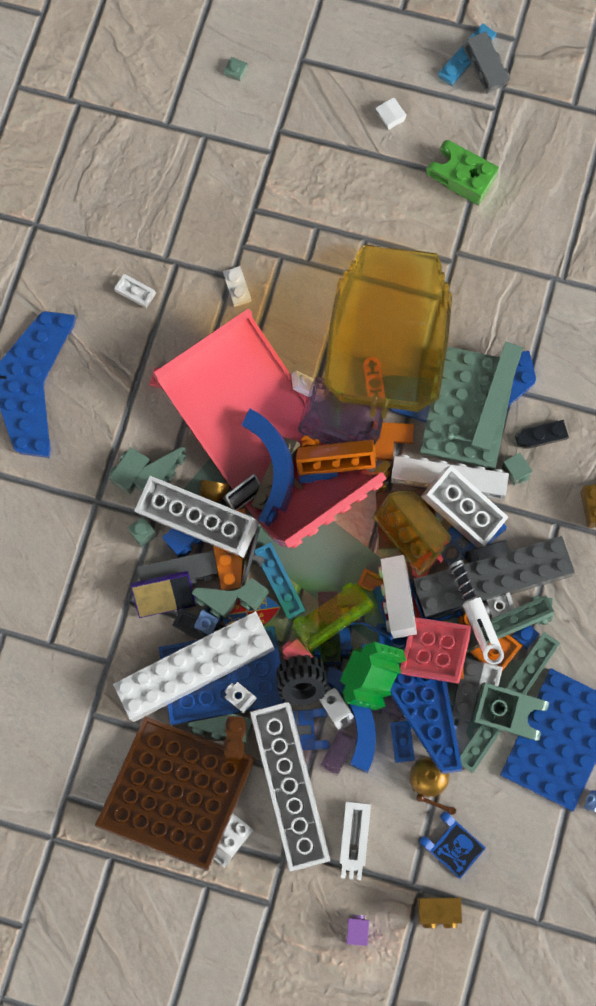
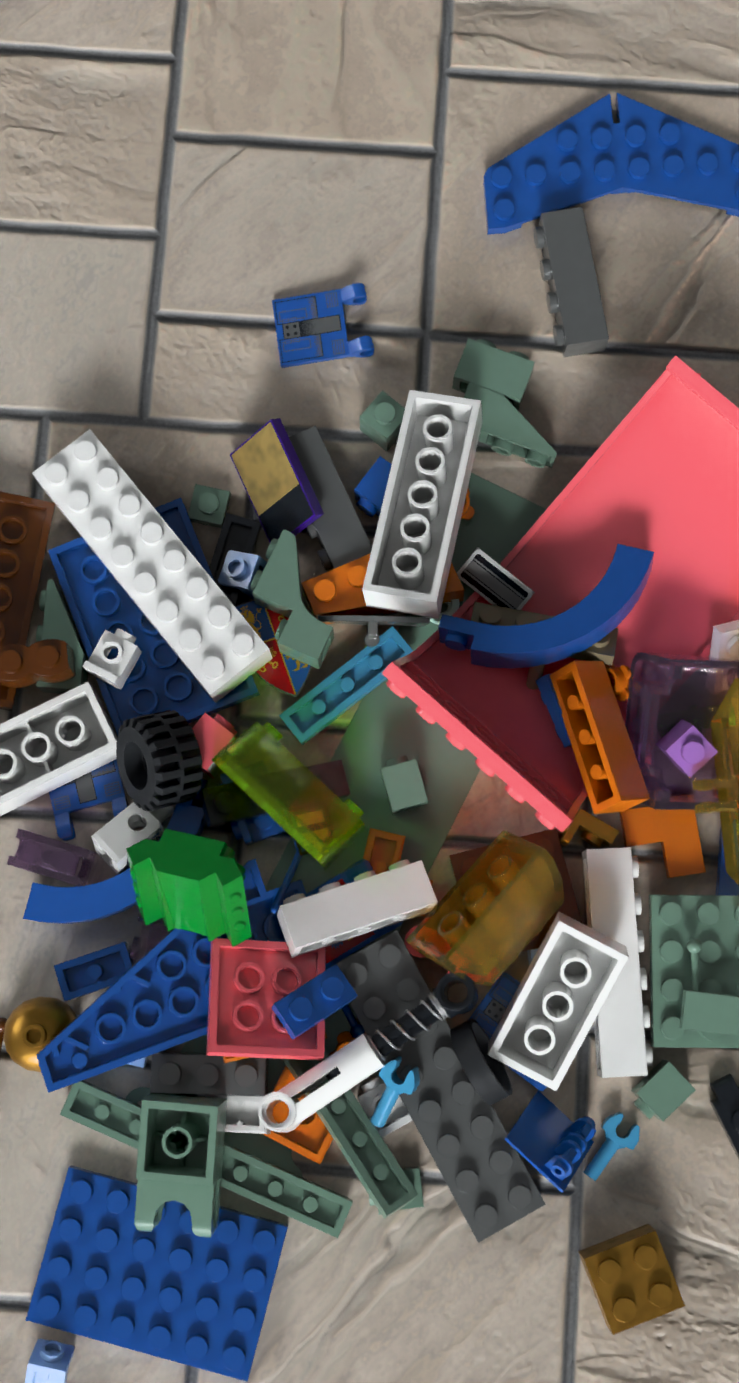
camera: 75 degrees right, 5 degrees up
(79, 559) = (314, 327): none -> blue flag
(89, 419) = (572, 282): none -> dark grey brick
(165, 634) = (209, 506): none -> sand green plate
(213, 490) = (487, 528): pearl gold helmet -> none
(338, 562) = (403, 784): none -> sand green brick
(351, 416) = (686, 748): none -> medium lavender brick
(442, 625) = (314, 1001): none -> blue plate
(491, 595) = (394, 1088): none -> dark azure bar
(526, 636) = (337, 1170): blue plate -> none
(531, 527) = (551, 1140): none -> blue hinge
(538, 499) = (611, 1144): none -> dark azure bar

